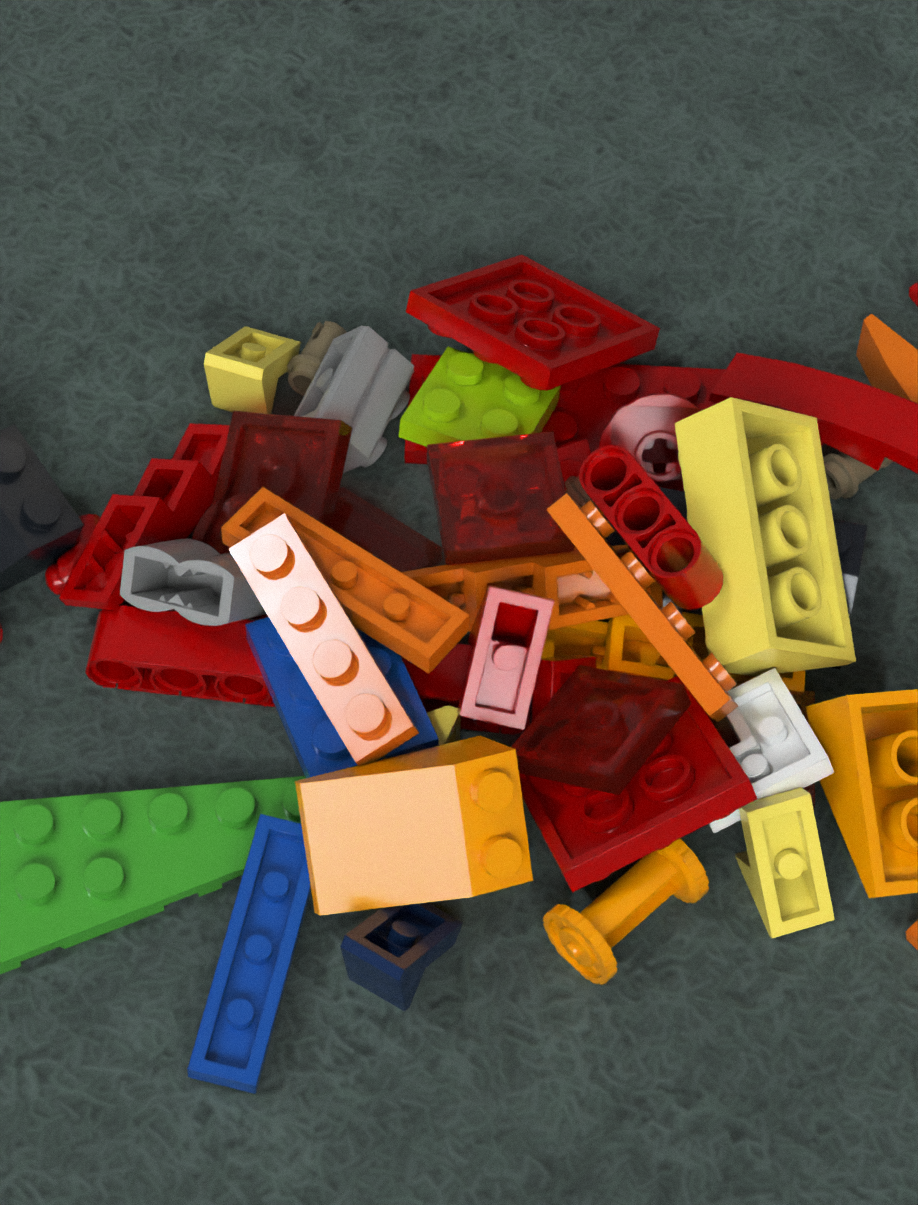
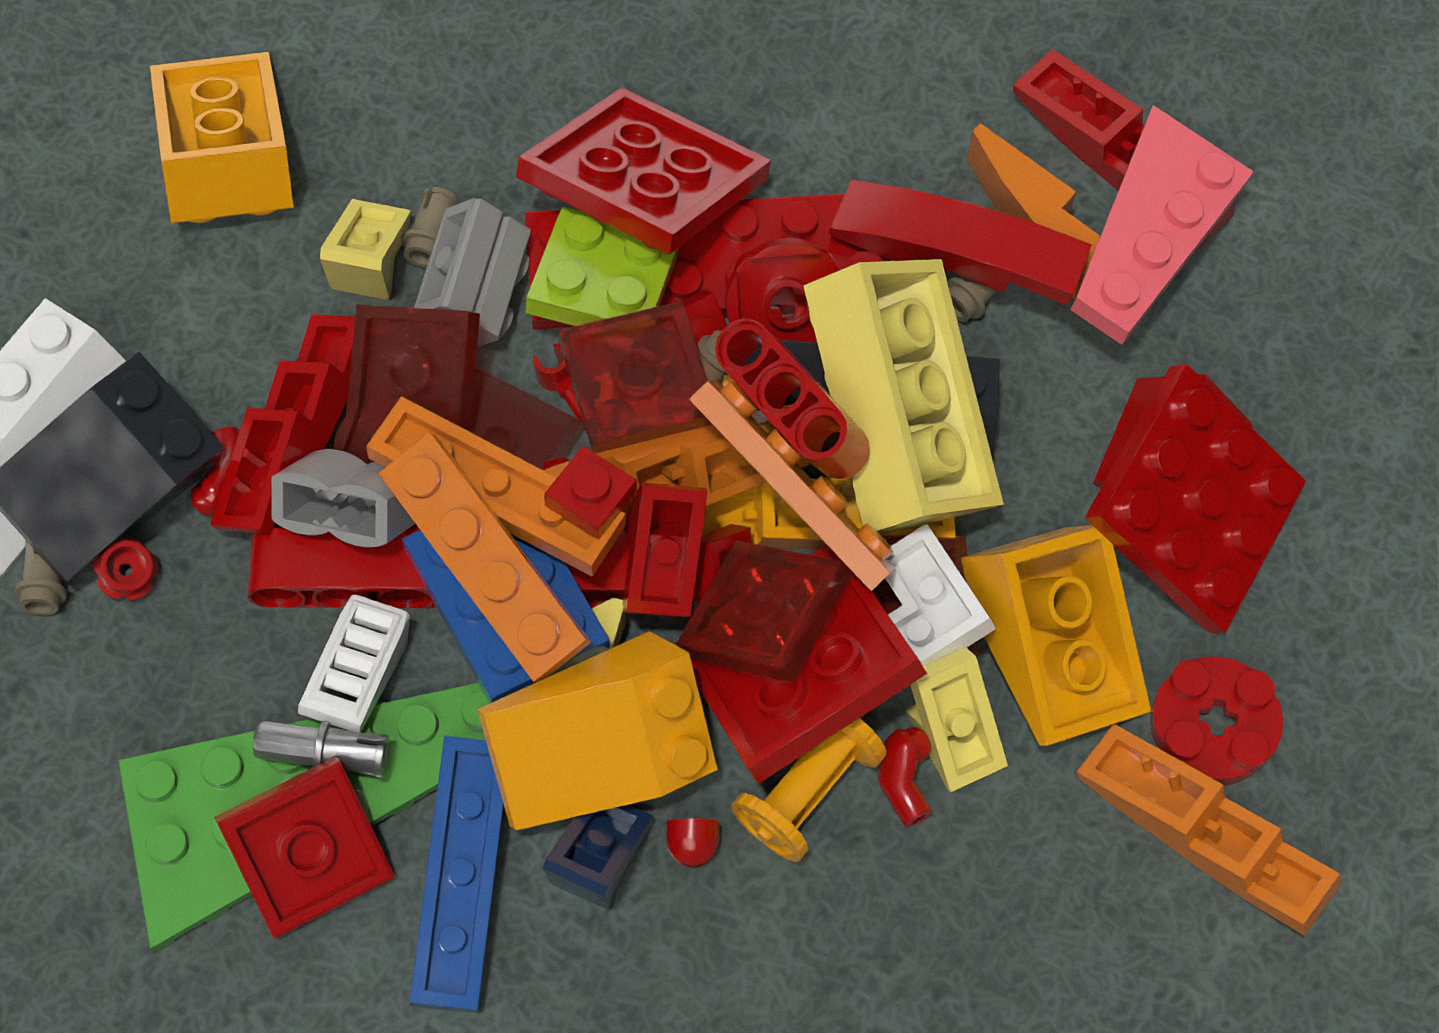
camera: 10 degrees left, 10 degrees up
(104, 907) = (304, 847): none -> red tile
(126, 261) = (221, 138): none -> light orange slope
(137, 813) = (312, 746): none -> flat silver axle
(187, 736) = (369, 628): none -> white slope
(422, 508) = (557, 380): none -> red hand
(437, 589) = (590, 492): none -> red plate
(499, 949) = (692, 840): none -> red hinge
(718, 912) = (898, 771): none -> red arm

